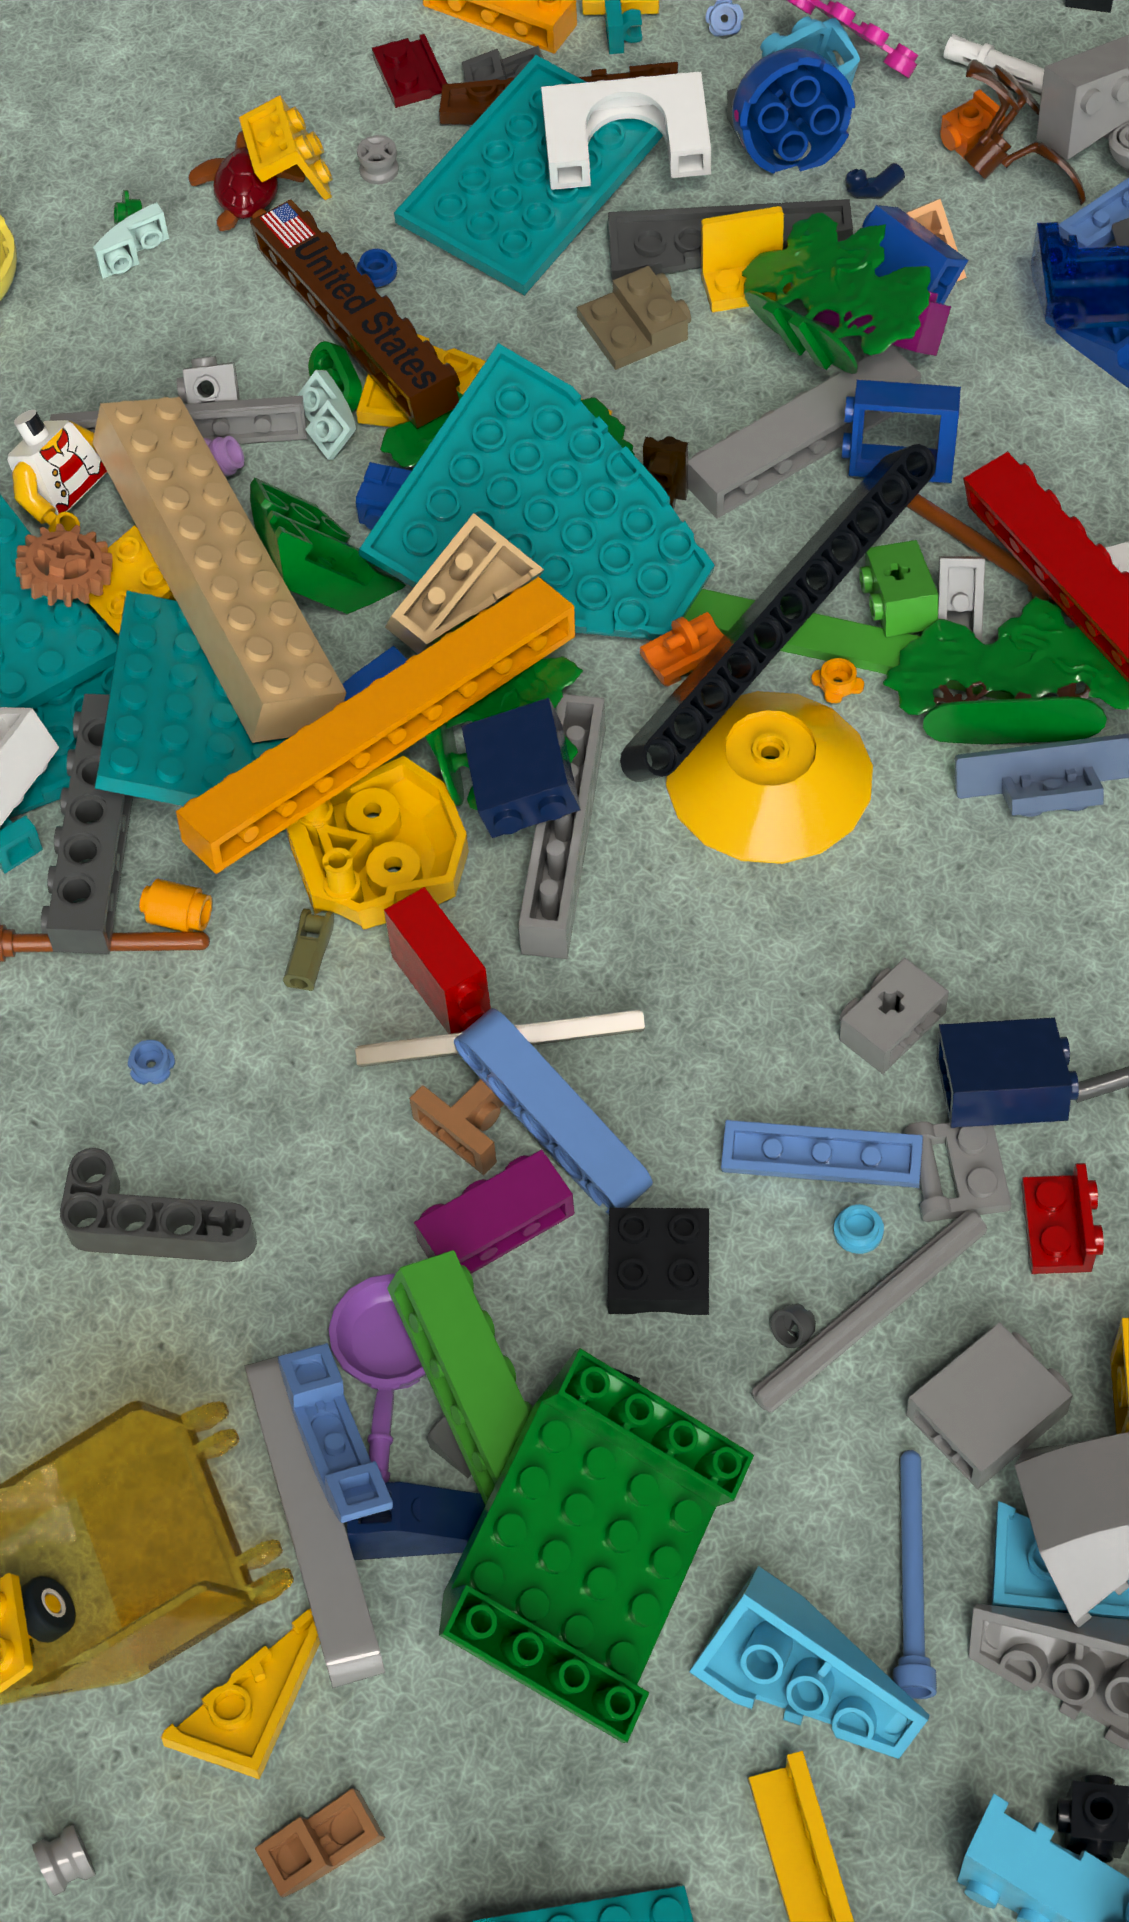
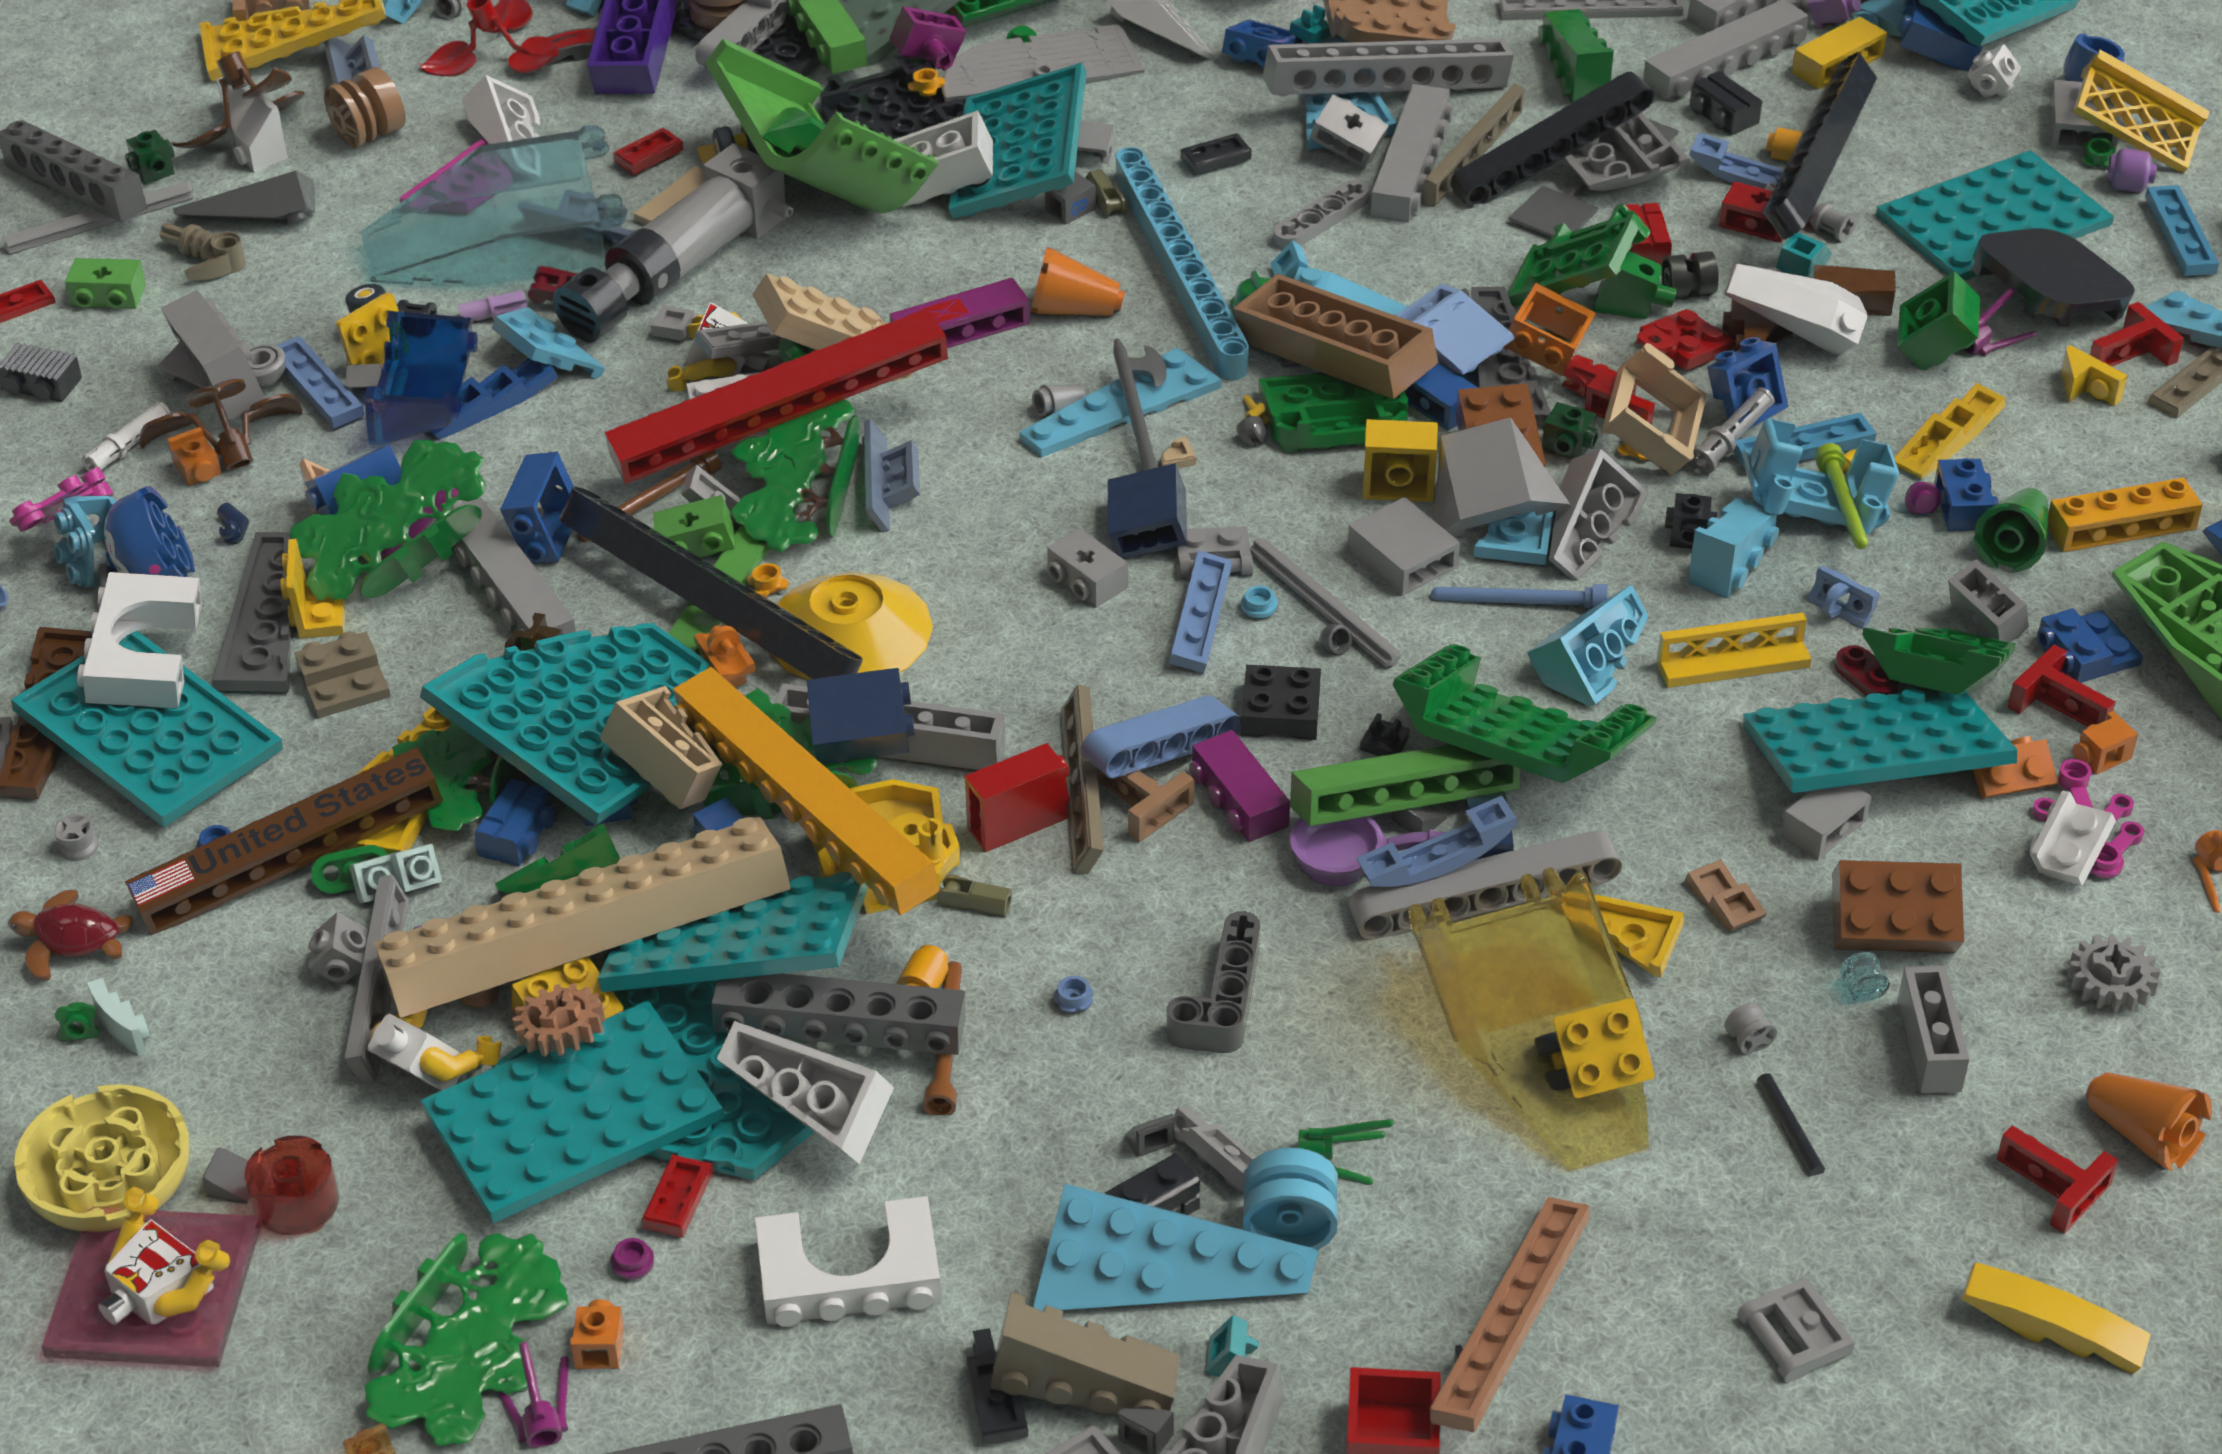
camera: 90 degrees left, 15 degrees down
(279, 140) = (53, 880): yellow bracket -> none
(1061, 1222) = (1262, 501): red bracket -> none

